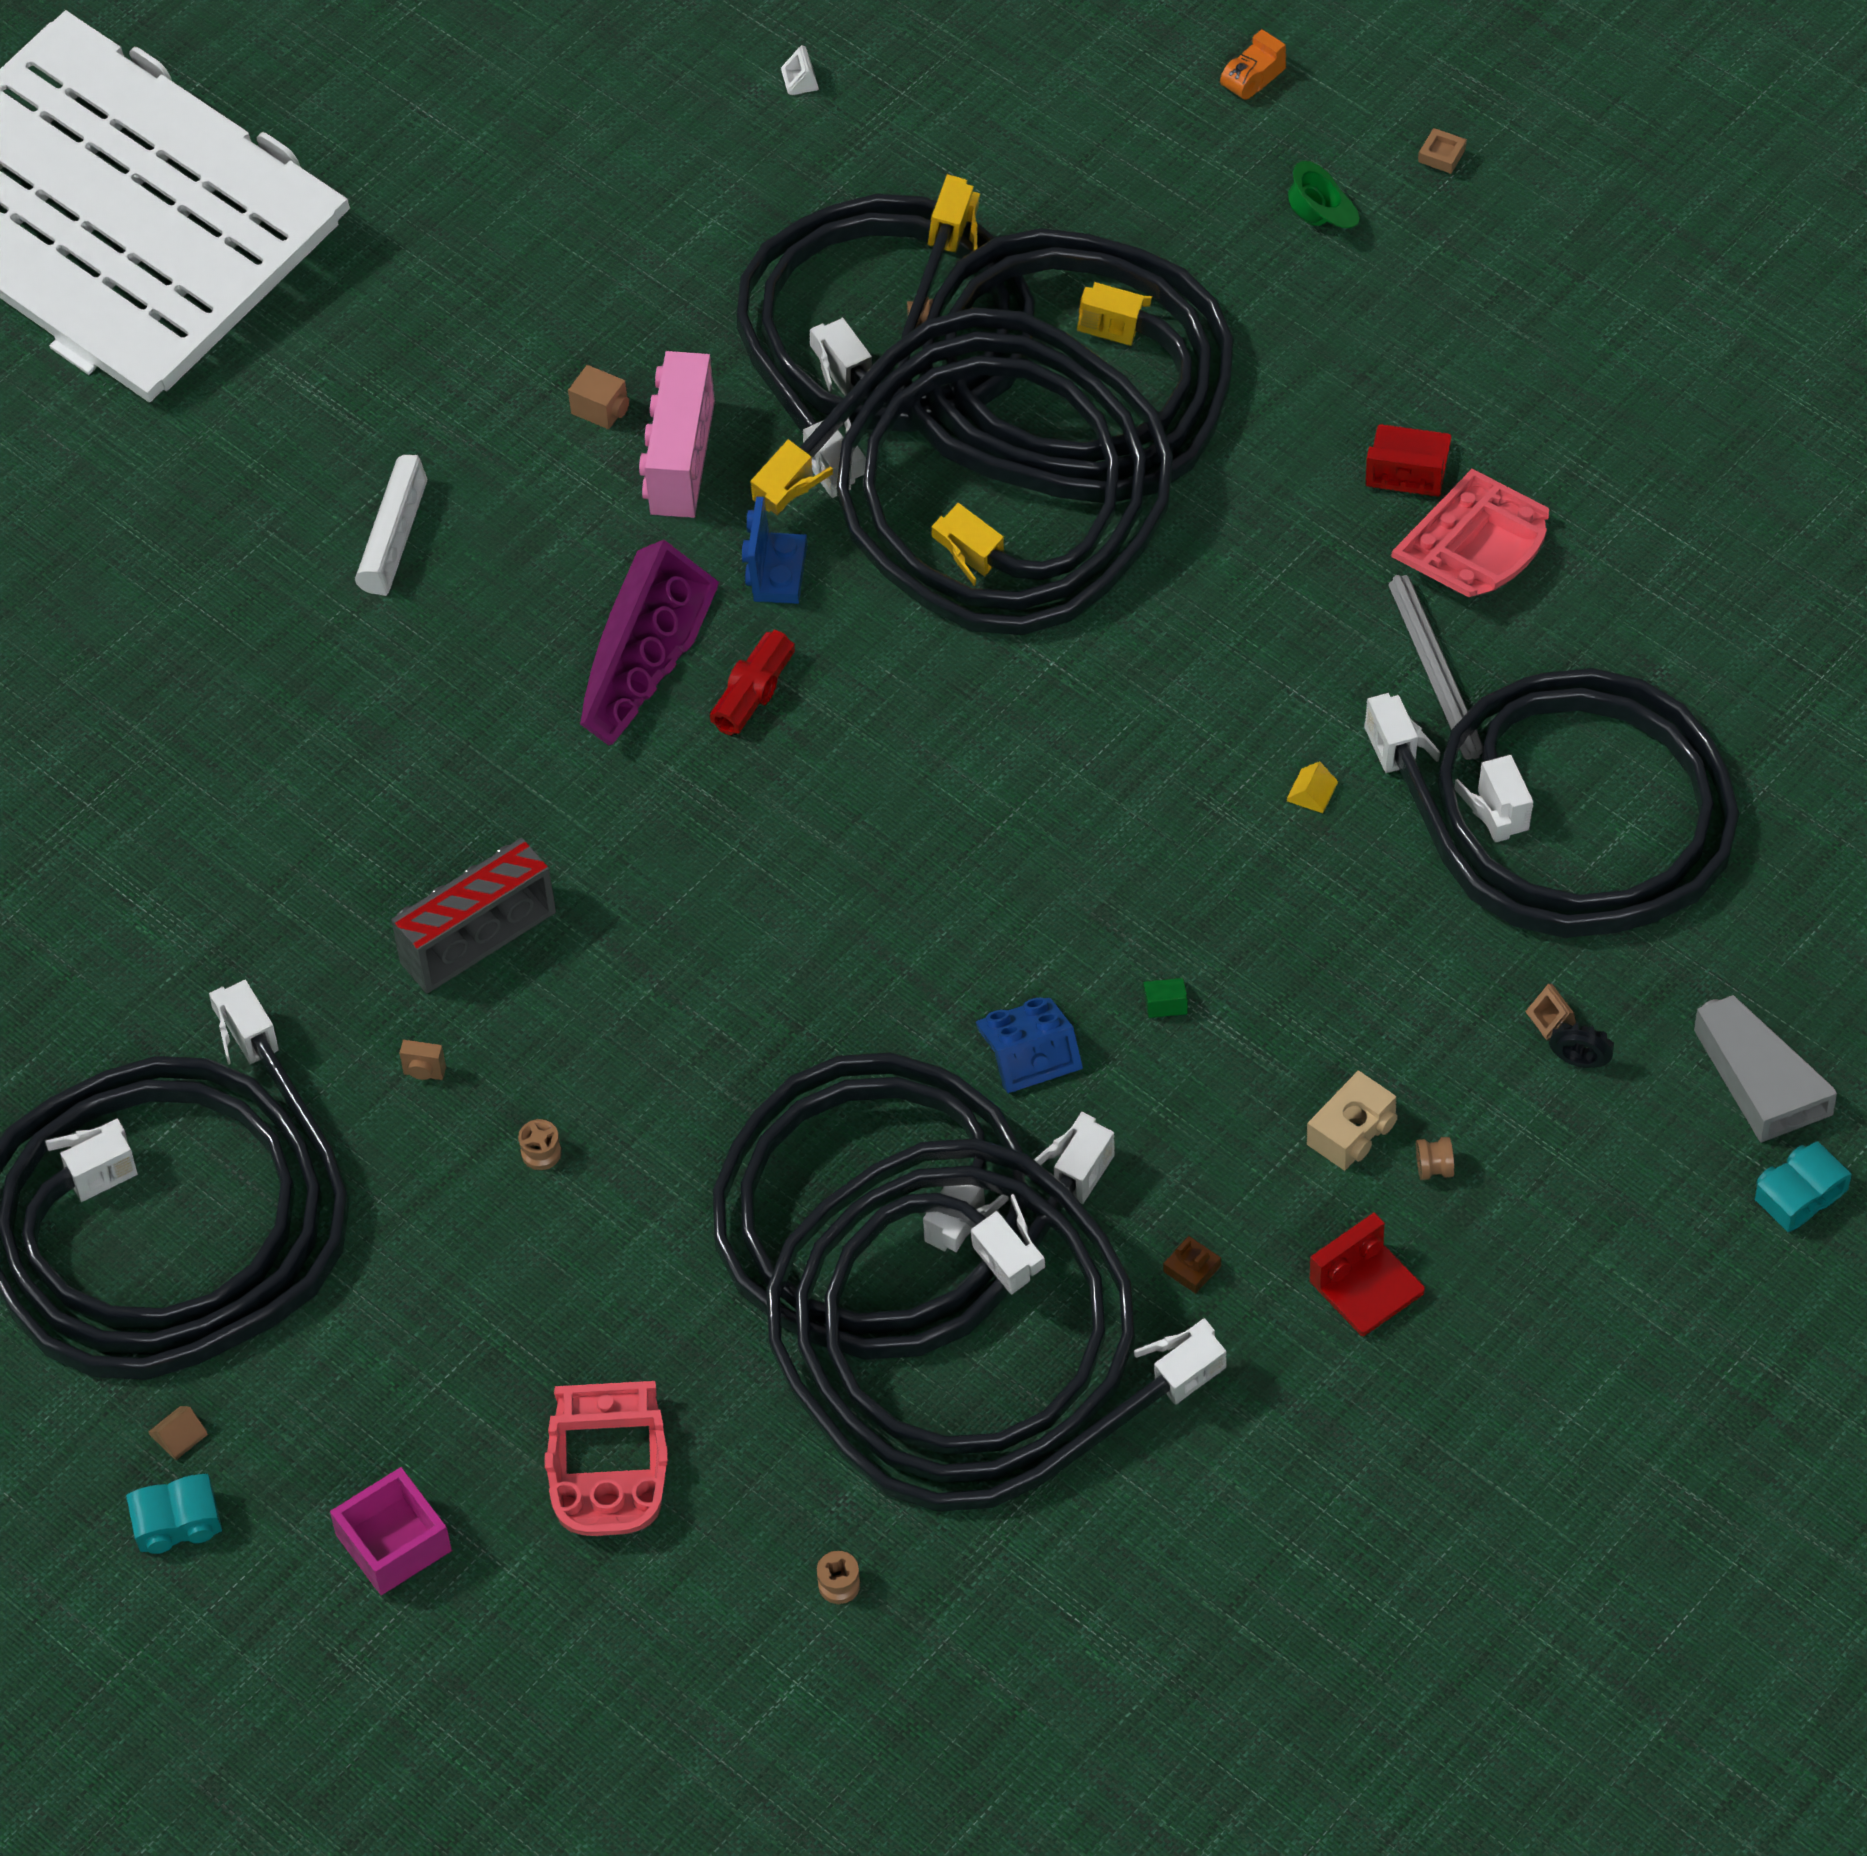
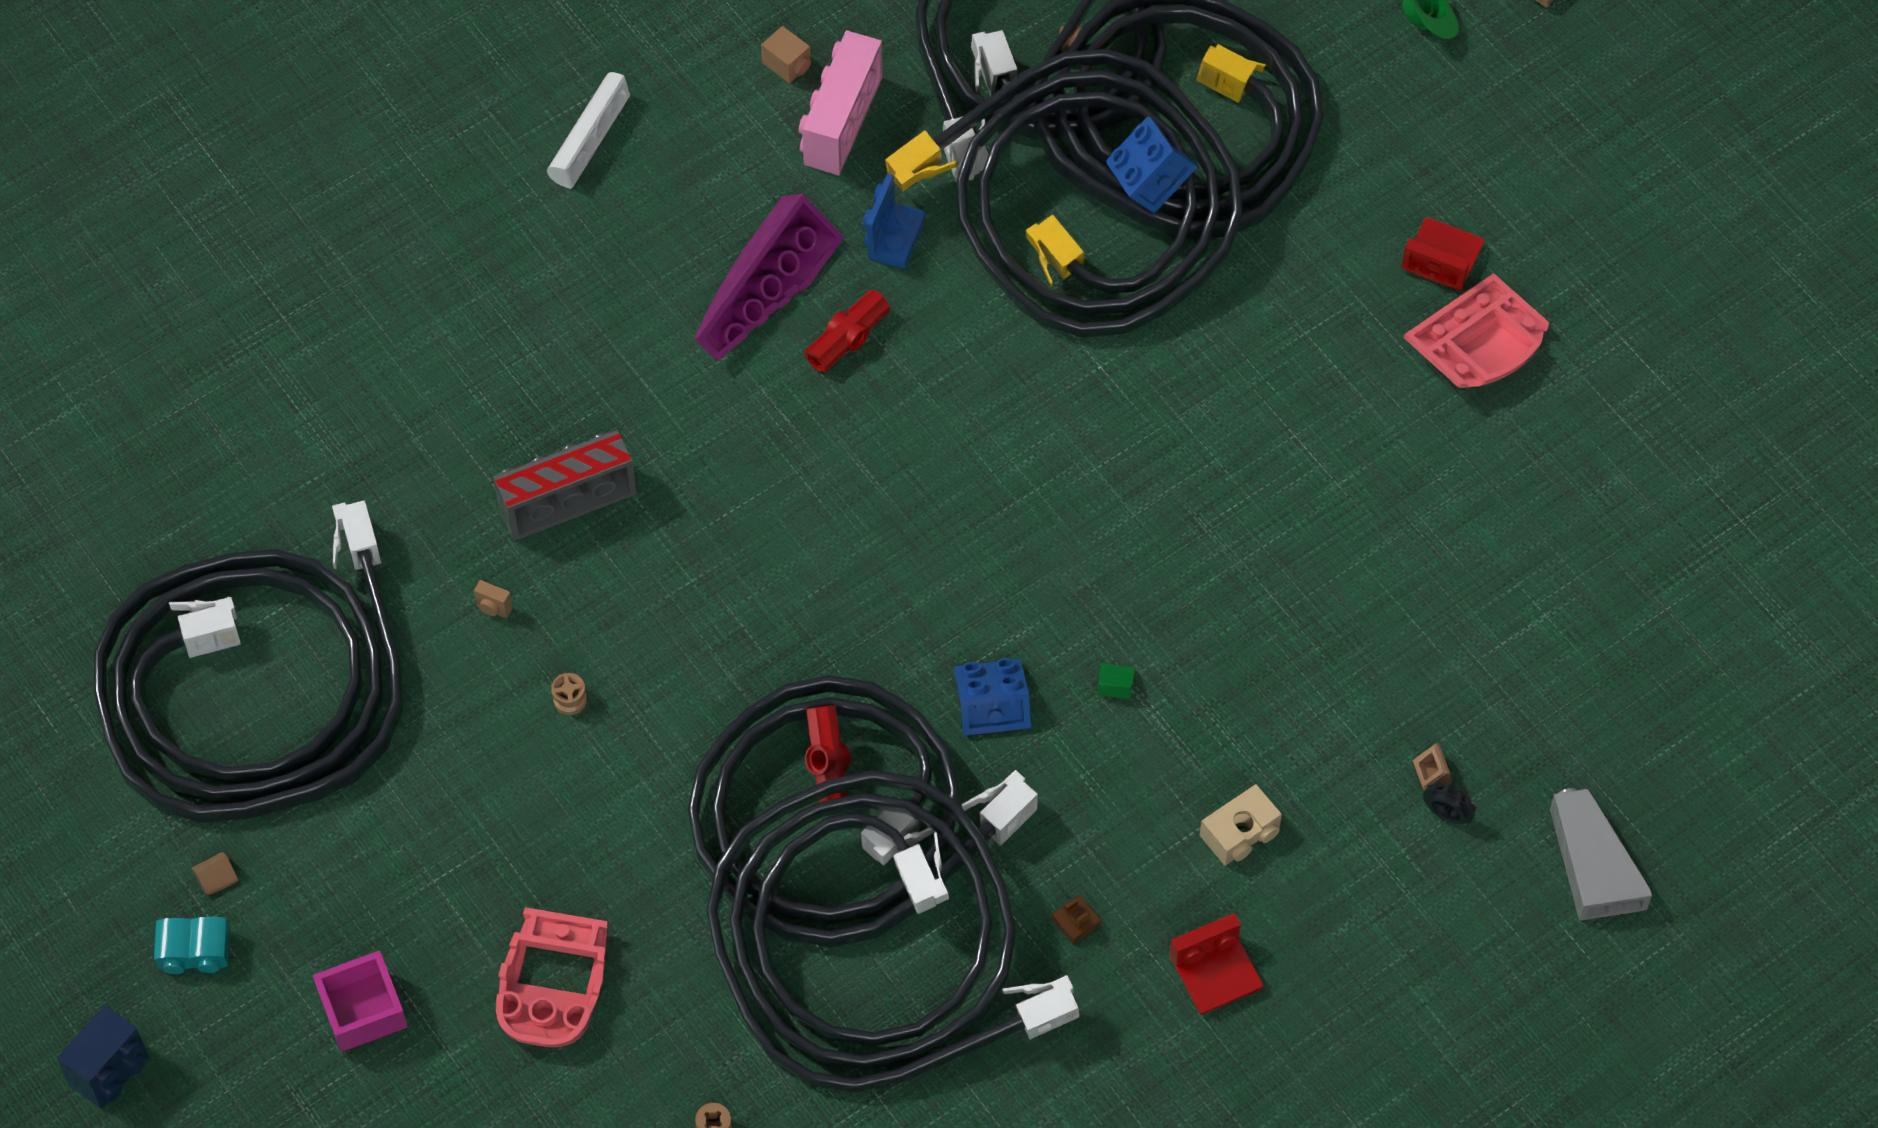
camera: 10 degrees right, 5 degrees up
(106, 1658) = (103, 1057): none -> dark blue brick
(854, 1131) = (827, 755): none -> red piece
(1055, 425) = (1150, 165): none -> blue bracket
(1313, 788) = (1287, 525): yellow slope -> none
(1433, 660) = (1418, 441): light grey axle -> none
(1435, 1158) = (1301, 874): medium nougat wheel -> none
(1507, 804) = (1446, 579): black piece -> none
(1802, 1185) = (1602, 968): teal brick -> none

